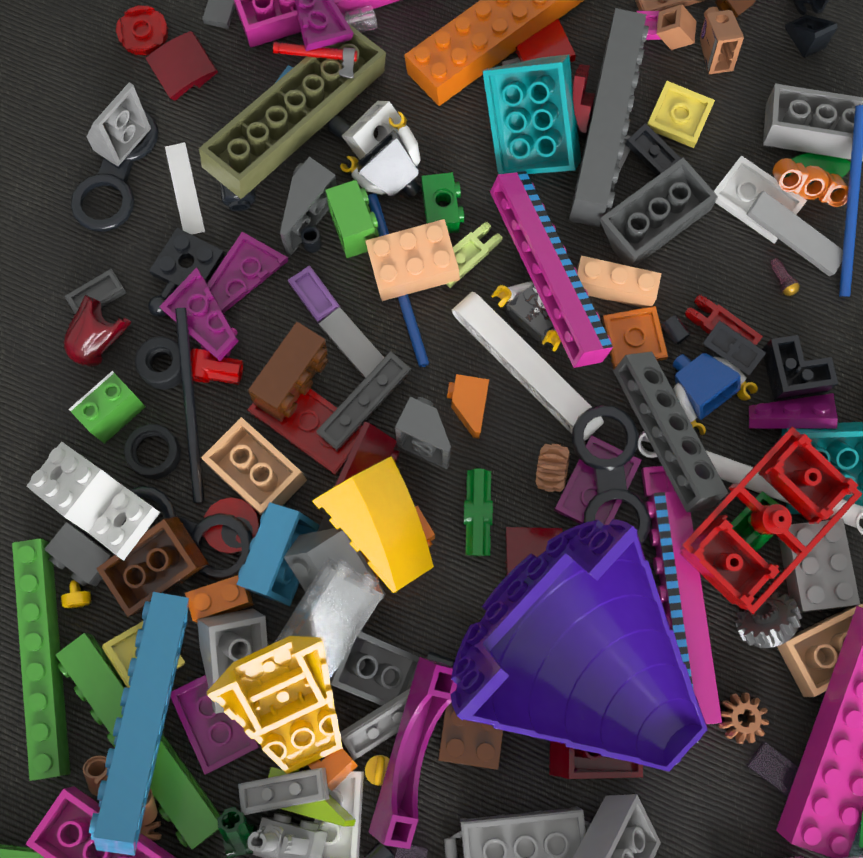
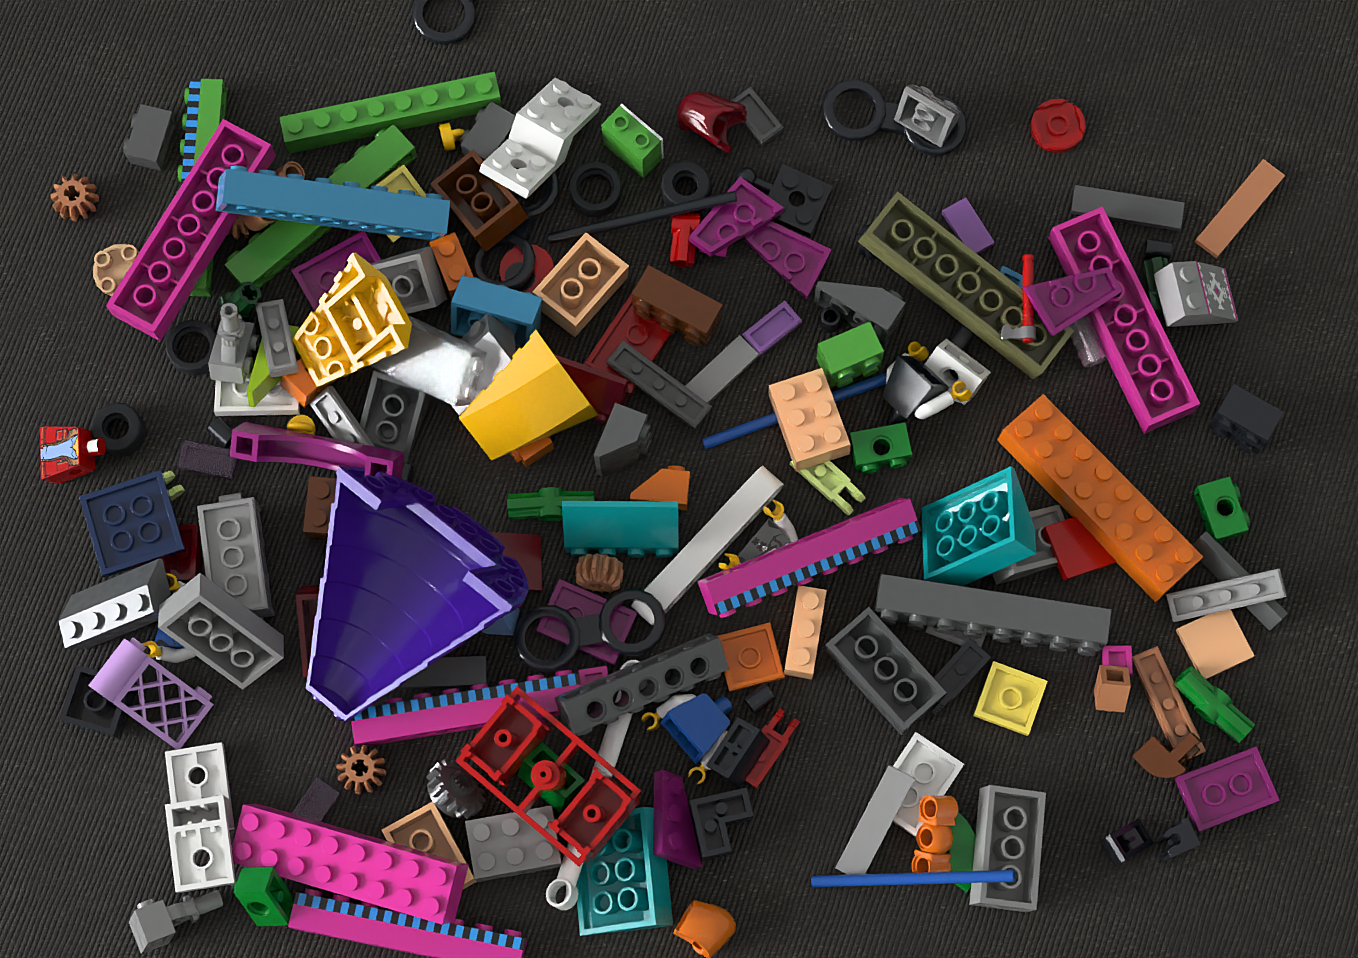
camera: 90 degrees right, 0 degrees up
(181, 65) = (1018, 170): dark red slope -> none
(184, 188) = (880, 189): white sticker -> none
(225, 112) = (968, 226): none -> medium lavender tile
(512, 441) = (621, 528): none -> teal slope
(582, 100) = (1009, 579): dark red slope -> none
(720, 40) = (1103, 737): nougat torso -> none
(789, 285) = (819, 819): clear pink piece -> none

